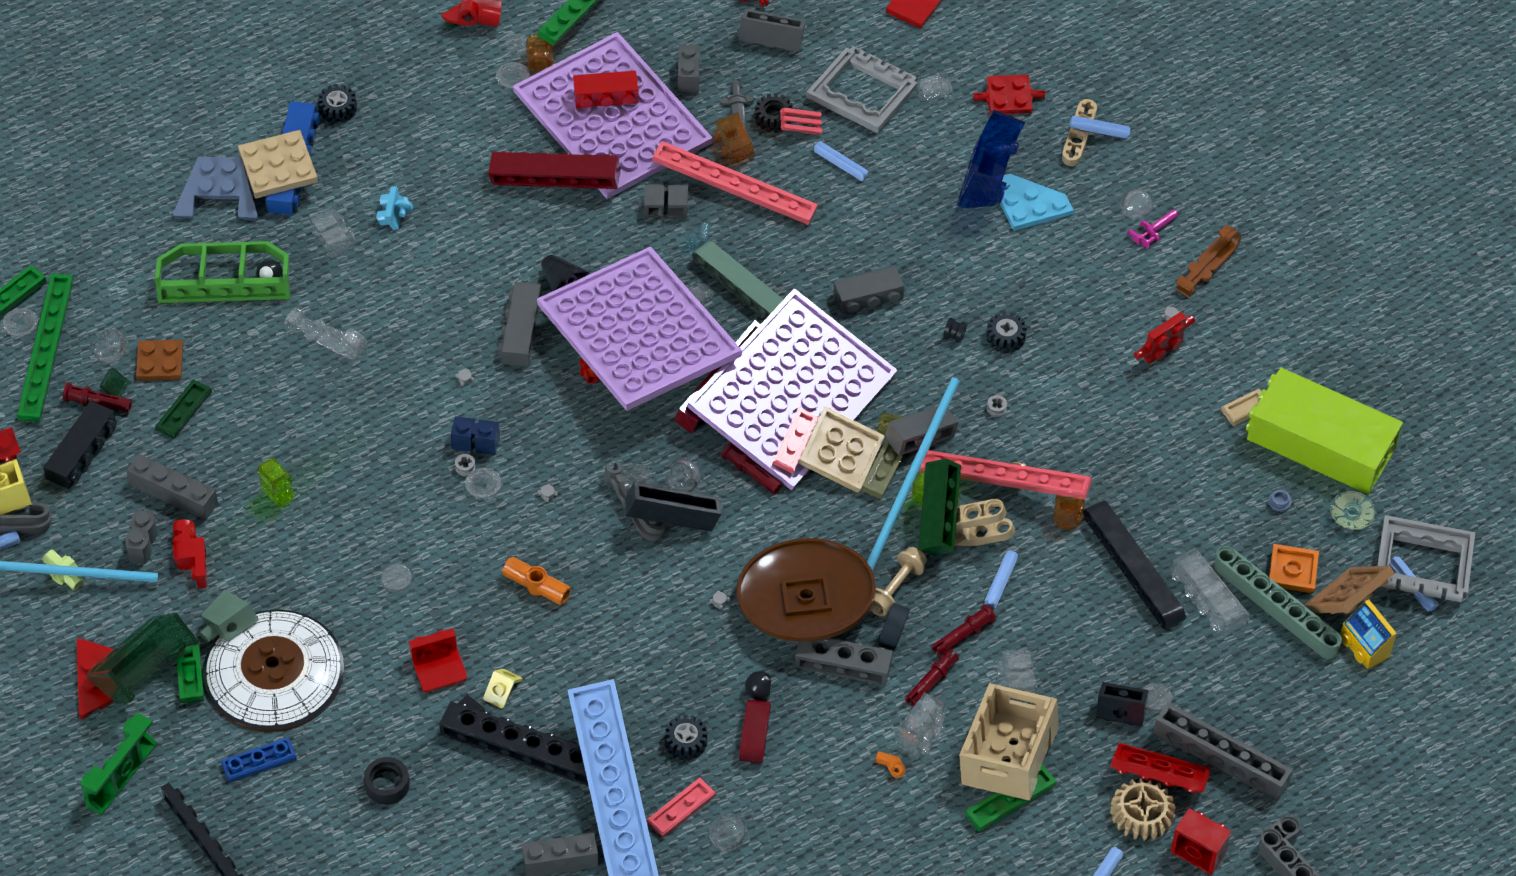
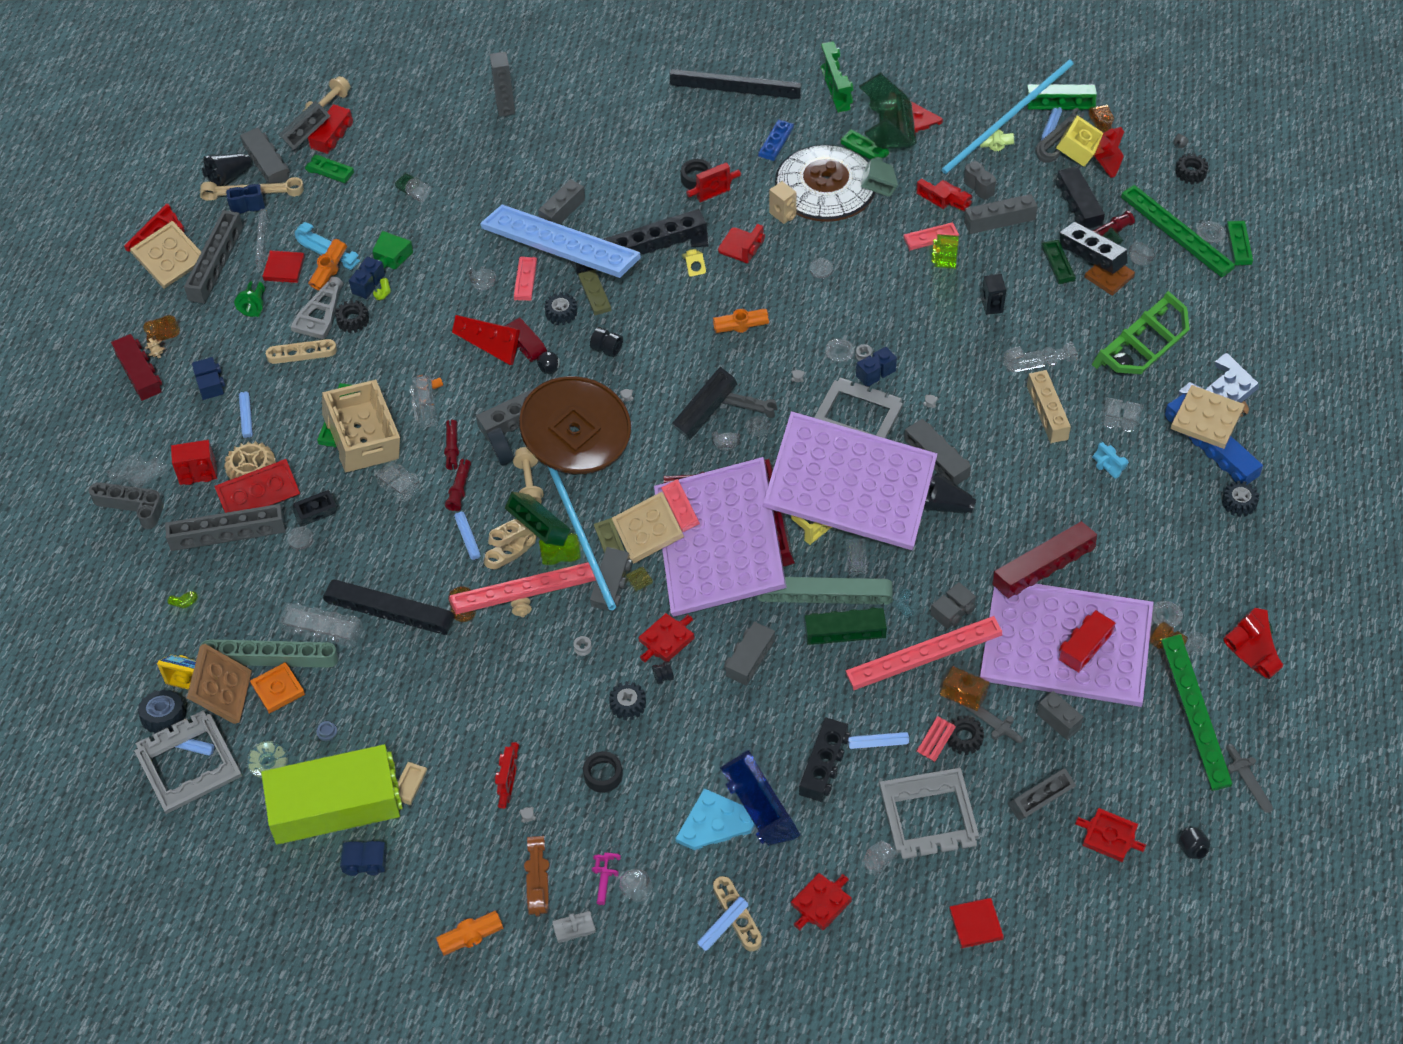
camera: 140 degrees right, 0 degrees up
(147, 347) = (1093, 247): none -> black brick
(256, 528) = (925, 237): none -> coral tile
(292, 408) = (993, 294): none -> black brick
(353, 660) = (782, 202): none -> tan brick
(380, 285) = (1048, 406): none -> tan brick
(390, 741) = (713, 182): none -> red plate
(513, 430) = (860, 391): none -> light grey hinge
(638, 724) = (594, 292): none -> olive plate
(684, 659) = (605, 341): none -> black wheel
(769, 252) = (845, 626): none -> dark green brick
(788, 756) = (490, 337): none -> red wing
(900, 174) = (830, 732): none -> black brick
(921, 358) = (666, 638): none -> red plate
(1081, 309) = (606, 785): none -> black tyre
(1215, 204) = (573, 927): none -> light grey hips
(1297, 262) = (469, 933): none -> orange piece
(1315, 718) = (183, 601): none -> clear neon green arm
(1334, 374) = (363, 857): none -> dark blue brick
(1415, 607) = (161, 710): none -> black wheel

